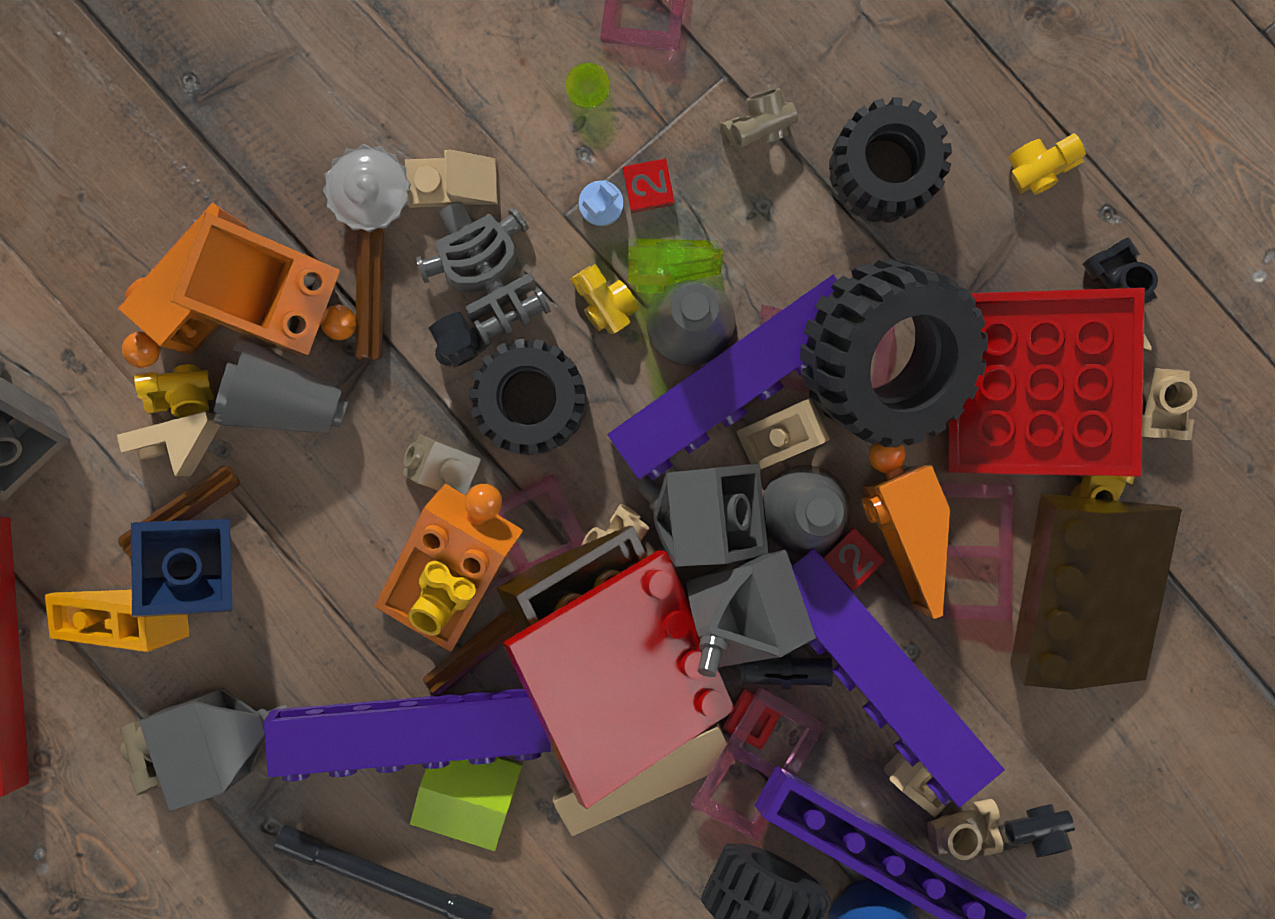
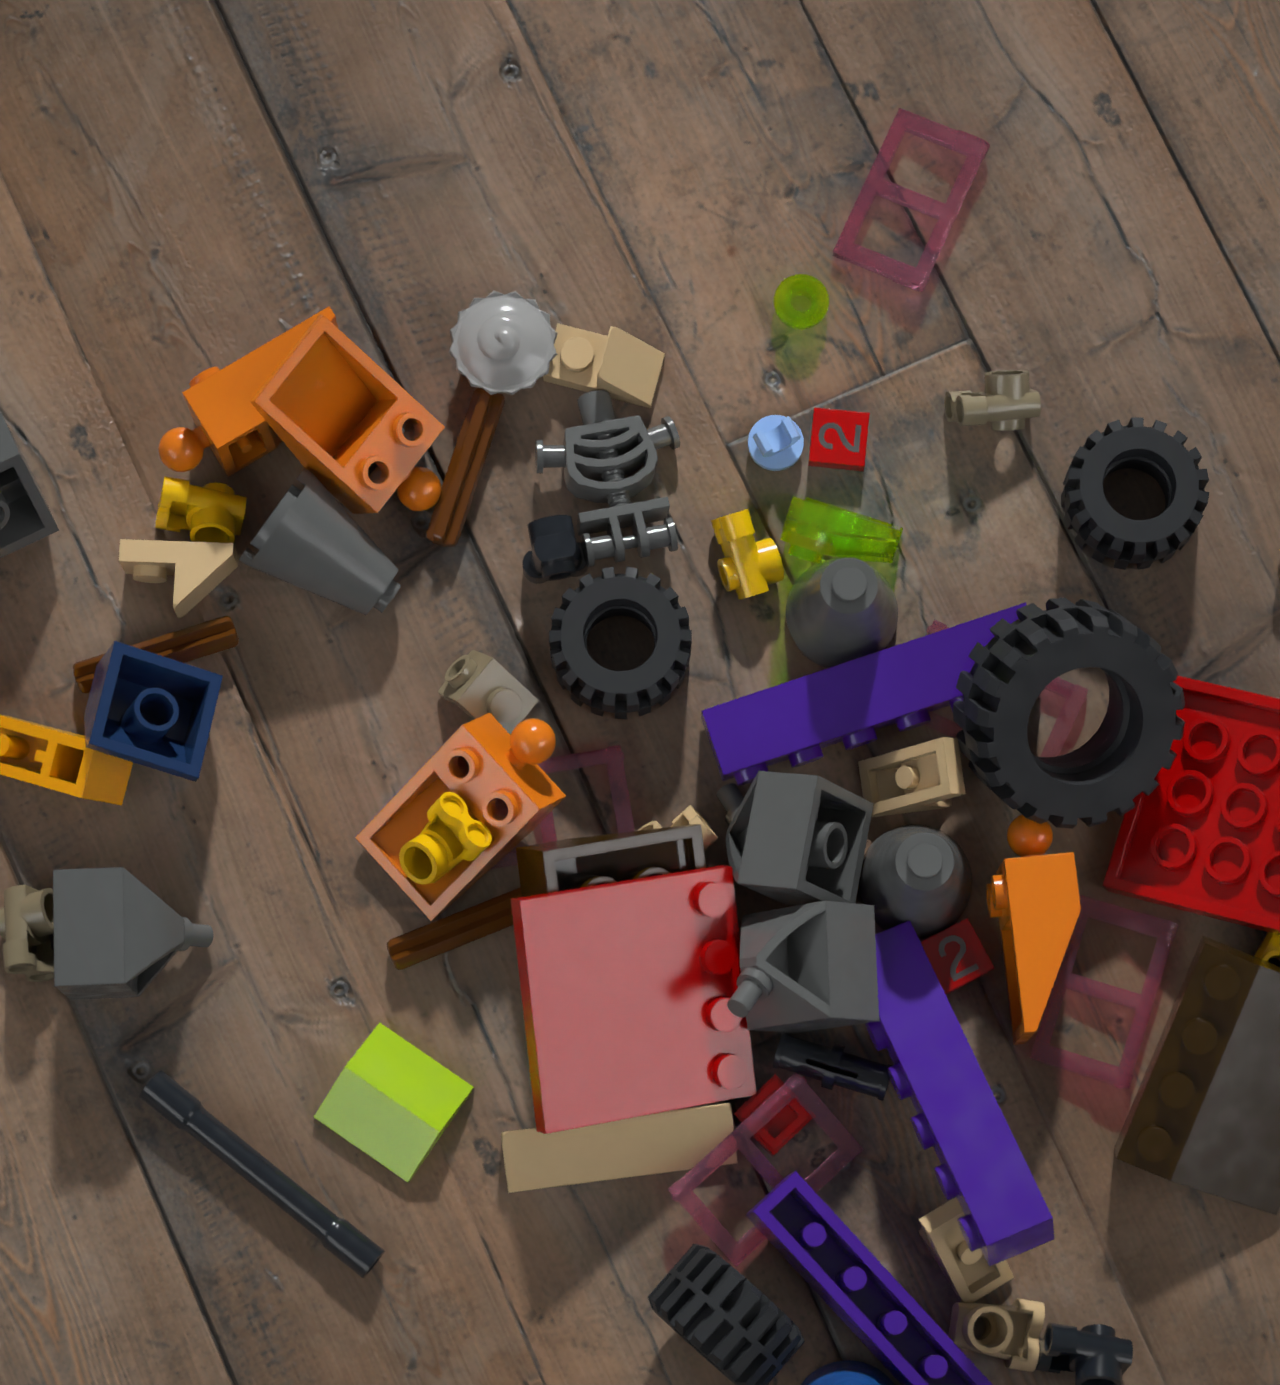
camera: 15 degrees right, 10 degrees down
(402, 733) = (354, 993): dark purple brick -> none

